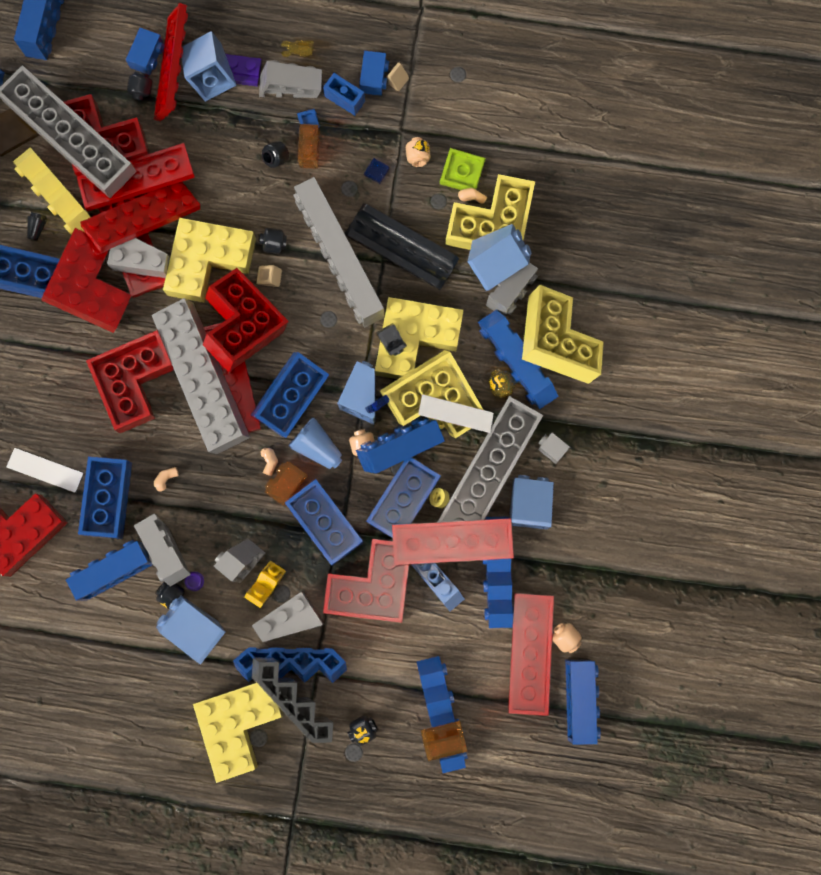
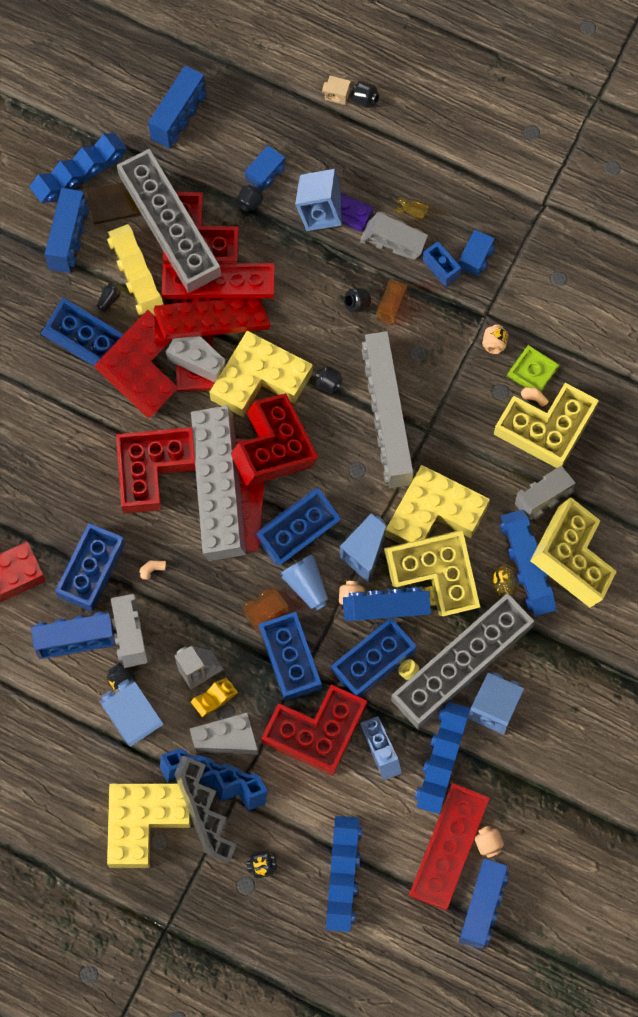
camera: 20 degrees right, 10 degrees down
(44, 470) = (40, 525): white sticker -> none
(170, 62) = (285, 186): red plate -> none
(194, 581) = (147, 673): dark purple plate -> none
(269, 276) = (313, 411): tan slope -> none
(271, 460) = (258, 583): light nougat arm -> none
(308, 117) = (400, 275): blue tile -> none
(376, 171) = (449, 345): clear blue tile -> none
(377, 404) = (376, 558): clear blue tile -> none
(391, 340) = (411, 504): black bracket -> none
(397, 77) = (499, 264): tan slope -> none
(402, 246) = (451, 423): black plate -> none
(443, 741) = (337, 894): clear orange brick -> none
(452, 541) = (407, 710): plate -> none
(455, 413) = (450, 592): white sticker -> none
(498, 256) = (539, 458): medium blue slope -> none
(553, 447) = (535, 657): light grey brick -> none

